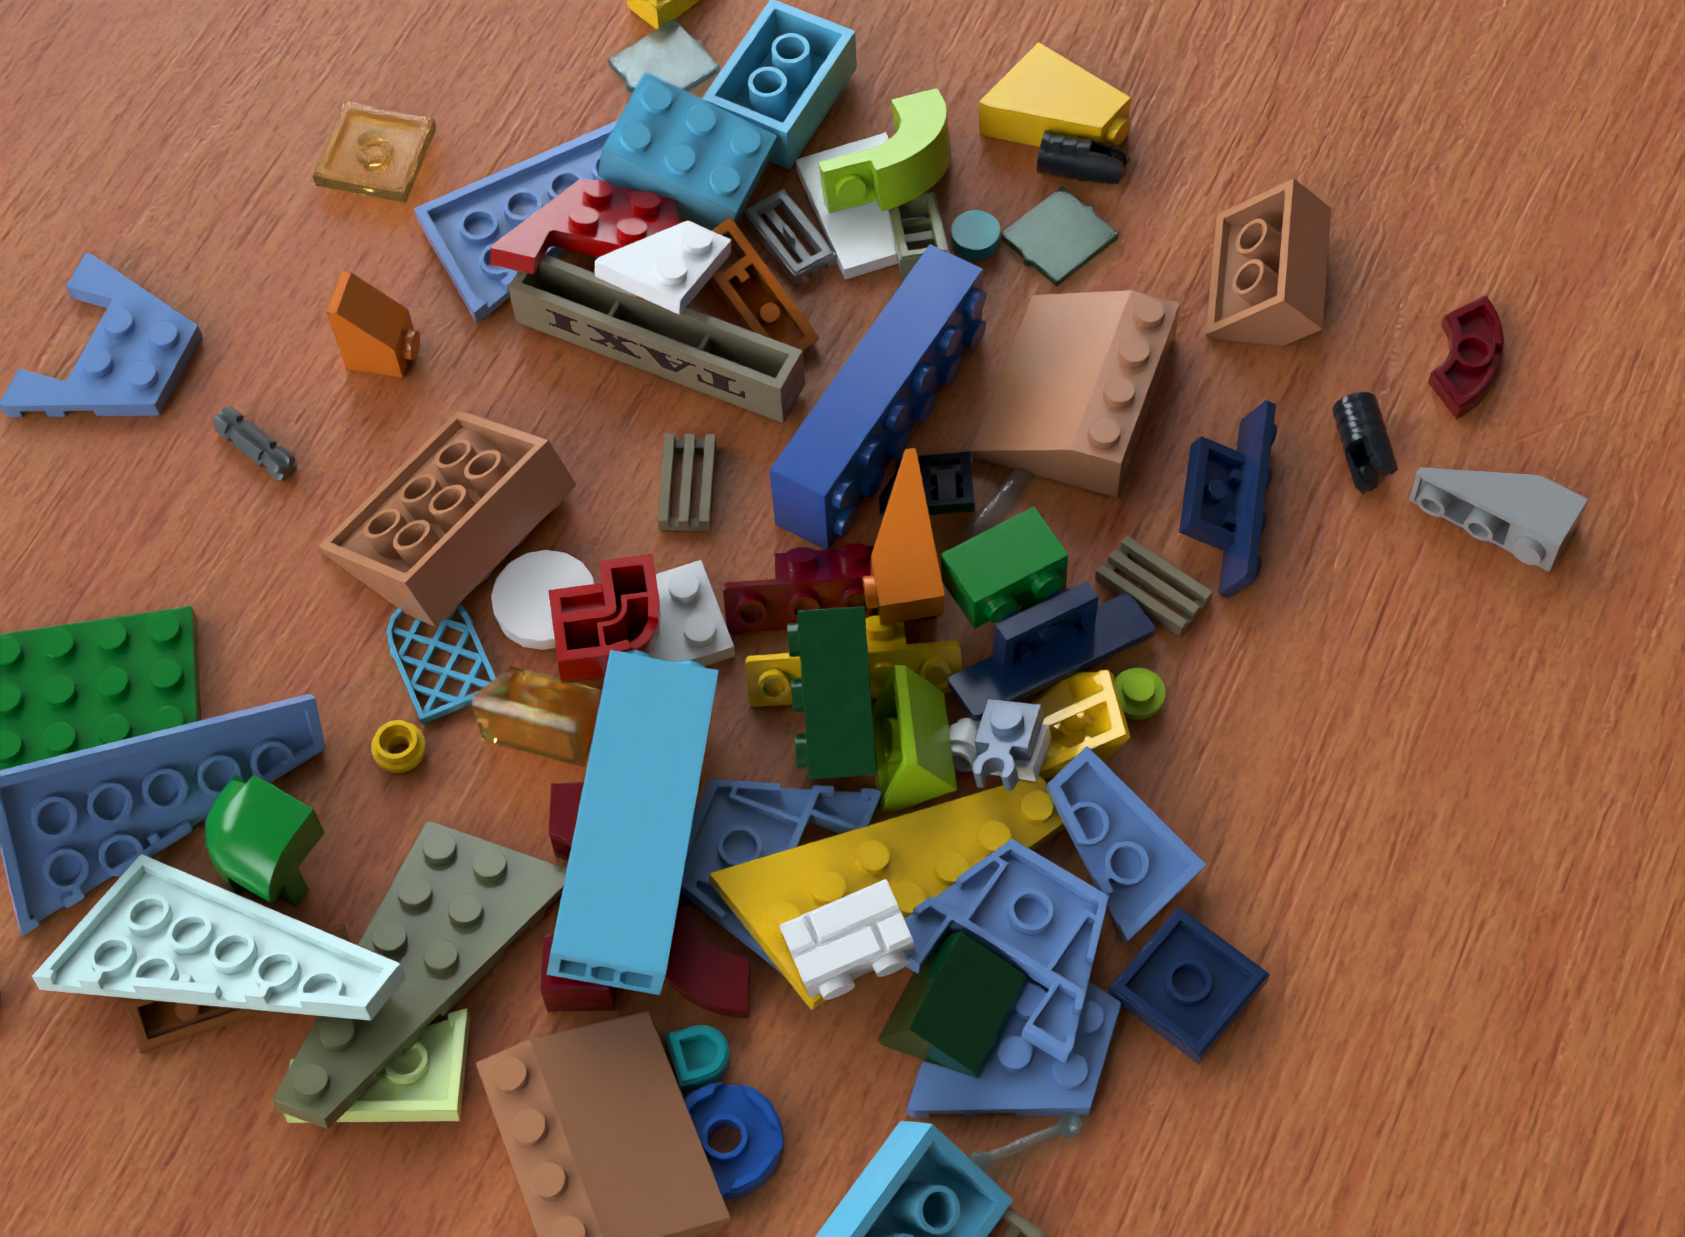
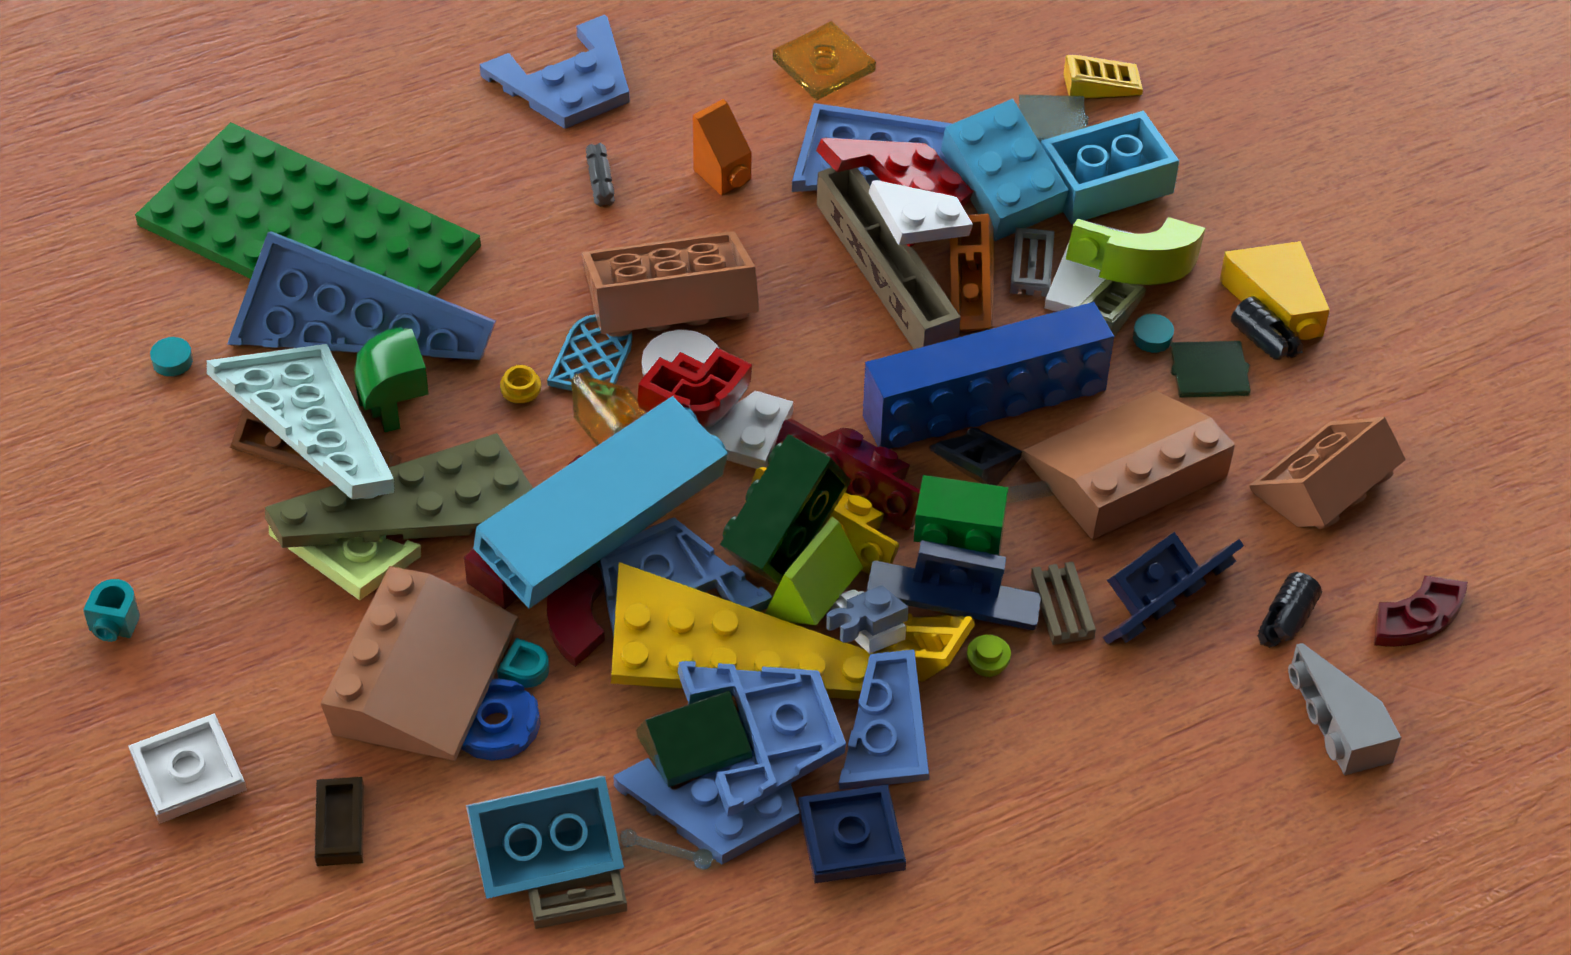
camera: 35 degrees right, 10 degrees down
(688, 447) = (824, 352): dark tan tile -> none
(849, 940) = (655, 645): white brick -> none
(904, 560) = (896, 472): orange slope -> none

